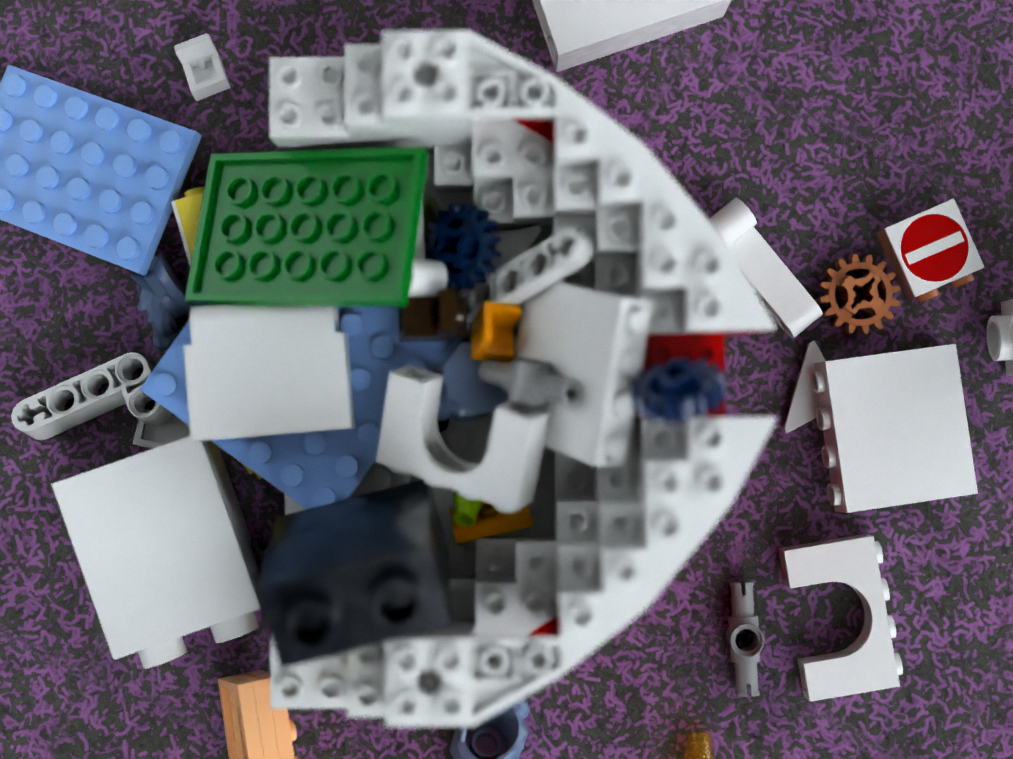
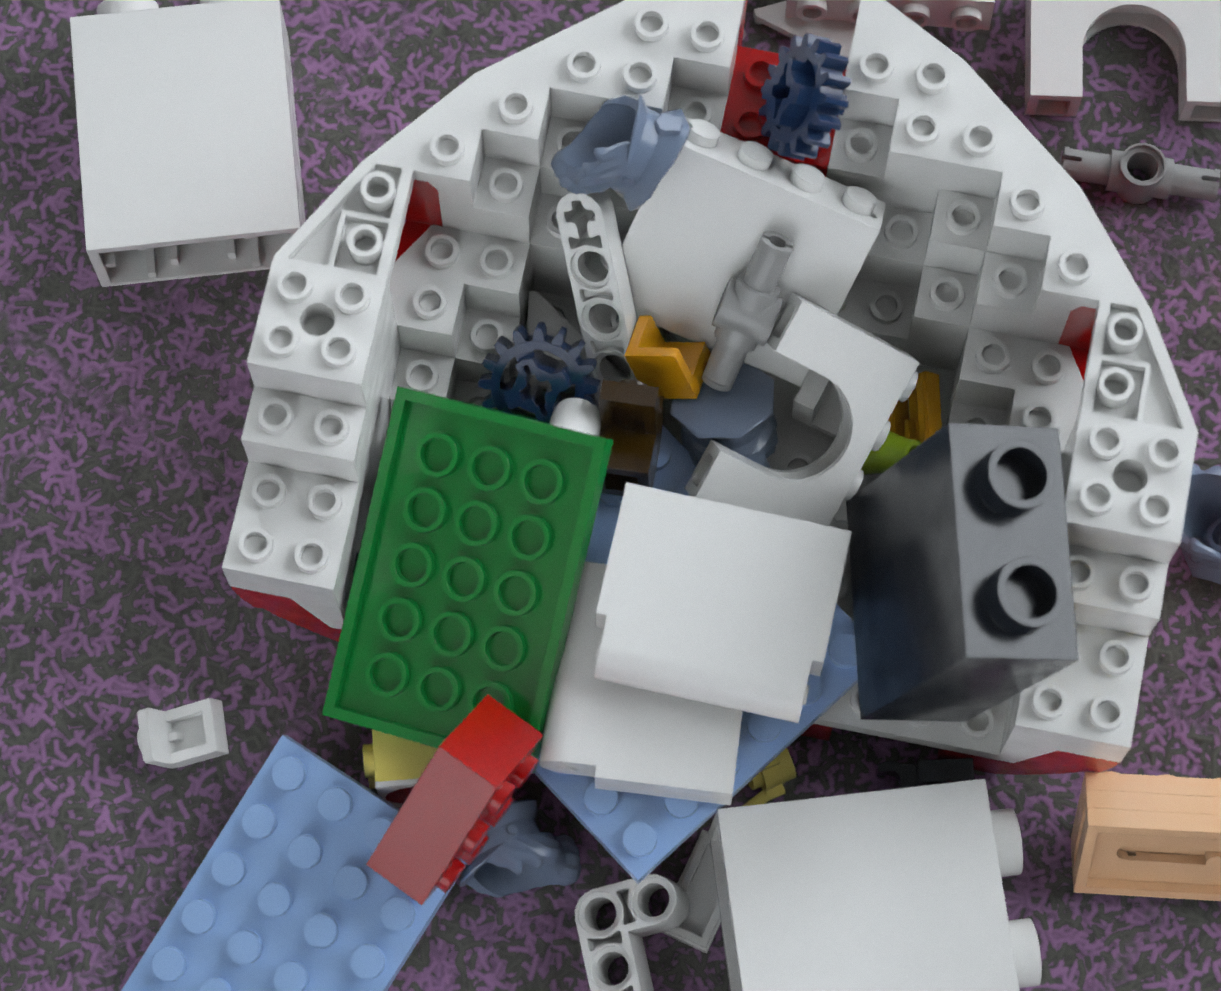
camera: 85 degrees left, 15 degrees down
(151, 258) = (454, 800): none -> brick
(313, 404) = (717, 602): none -> white piece
(605, 266) = (622, 150): none -> sand blue piece

